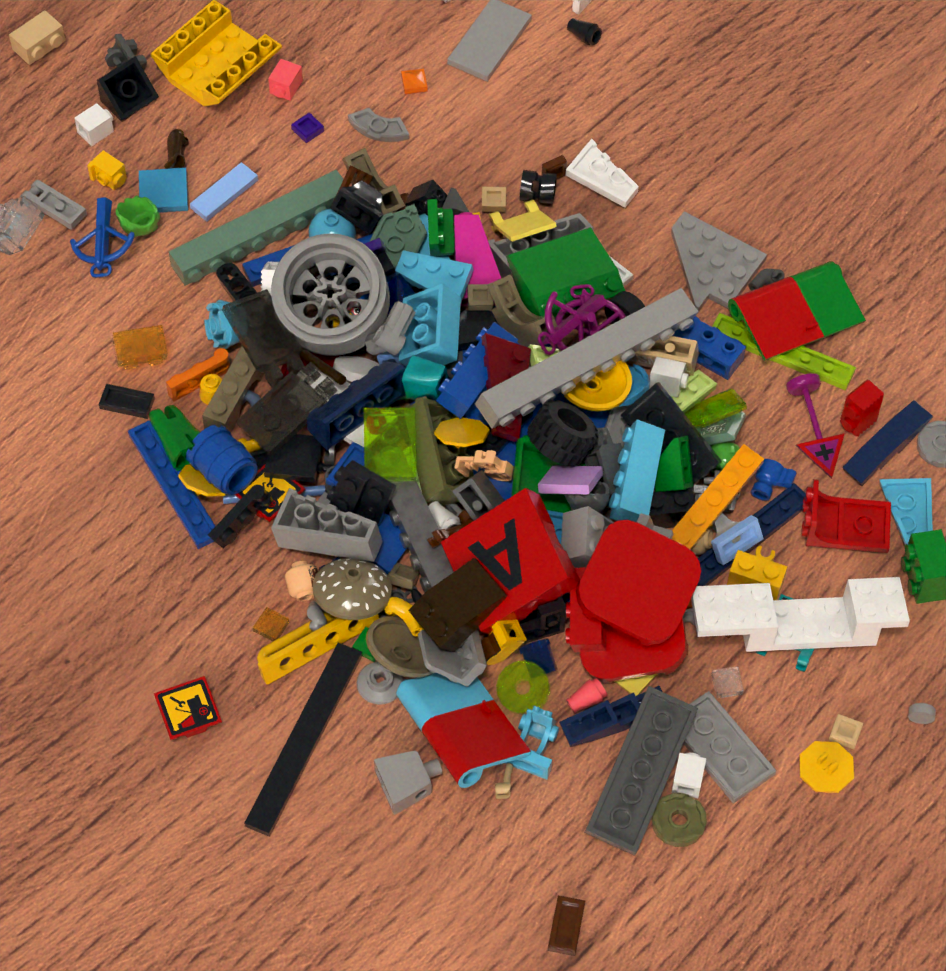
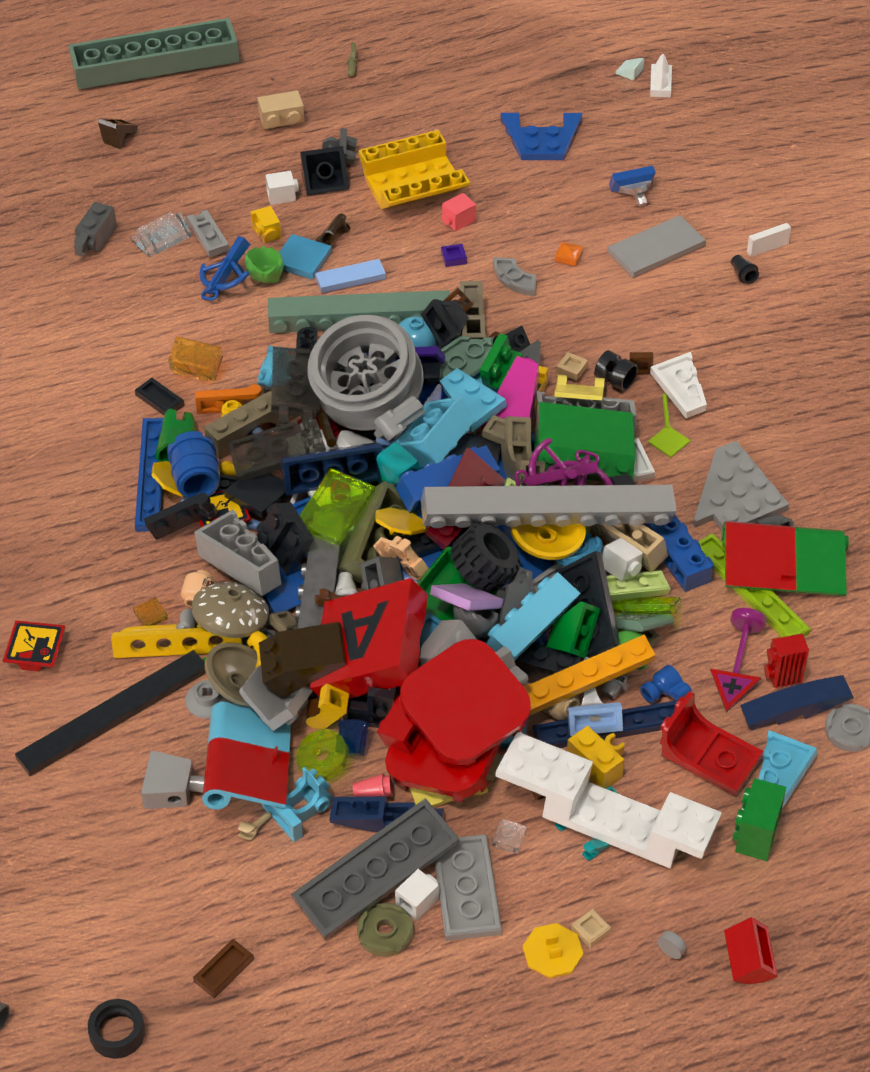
camera: 30 degrees right, 10 degrees down
(621, 235) = (668, 439): none -> lime piece

